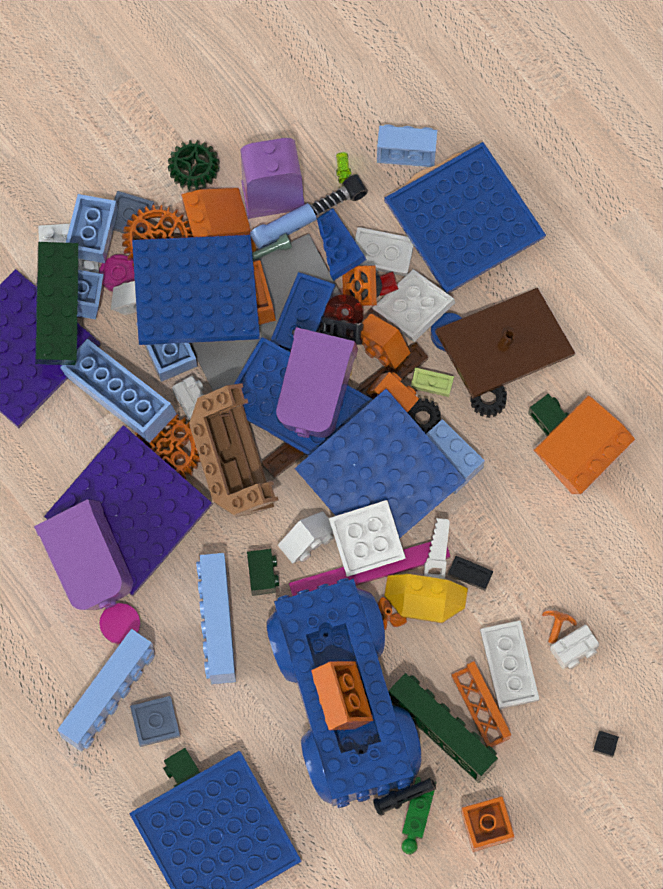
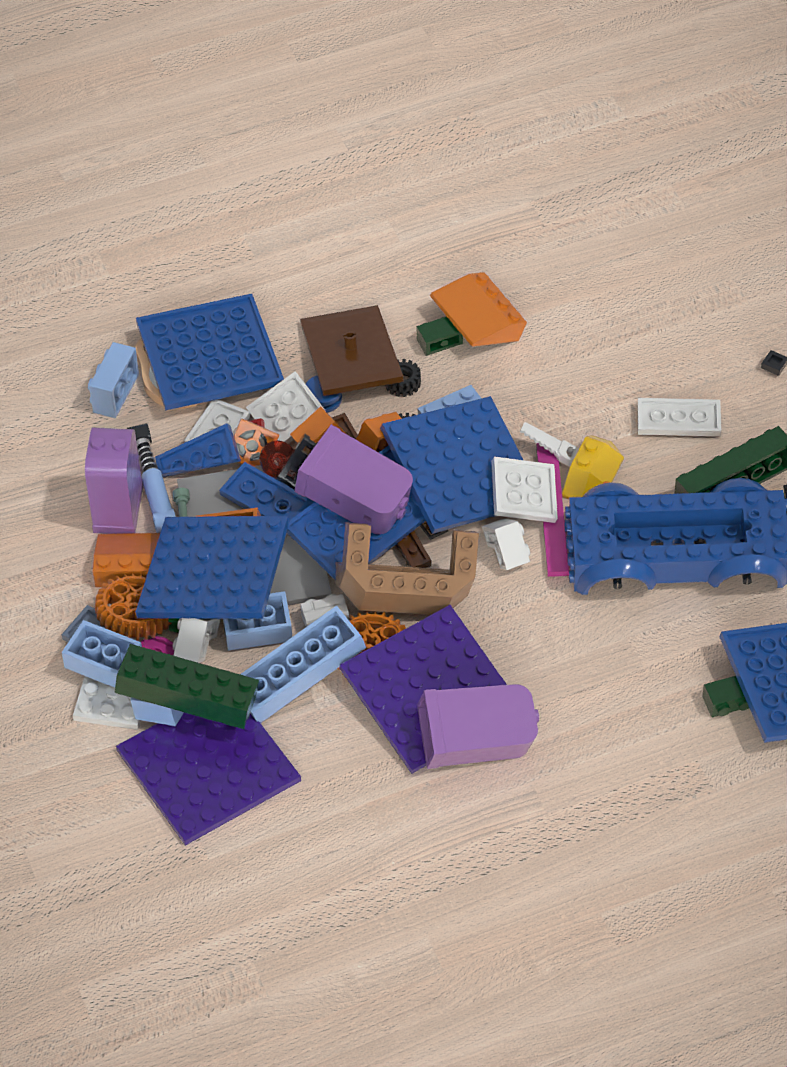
camera: 75 degrees left, 20 degrees down
(106, 690) = (626, 740): light blue brick -> none
(118, 621) = (553, 726): dark pink tile -> none
(155, 721) = (666, 712): sand blue plate -> none
(179, 160) = (60, 568): dark green gear -> none
(217, 617) = (573, 630): light blue brick -> none
(261, 572) = (530, 591): dark green brick -> none
(342, 695) = (690, 528): orange brick -> none
(432, 382) = (373, 409): yellowish green plate -> none
(470, 573) = (578, 427): black plate -> none
(488, 701) = (710, 441): orange fence -> none
(559, 618) = (643, 368): orange plant -> none
(574, 647) = (675, 364): white brick -> none

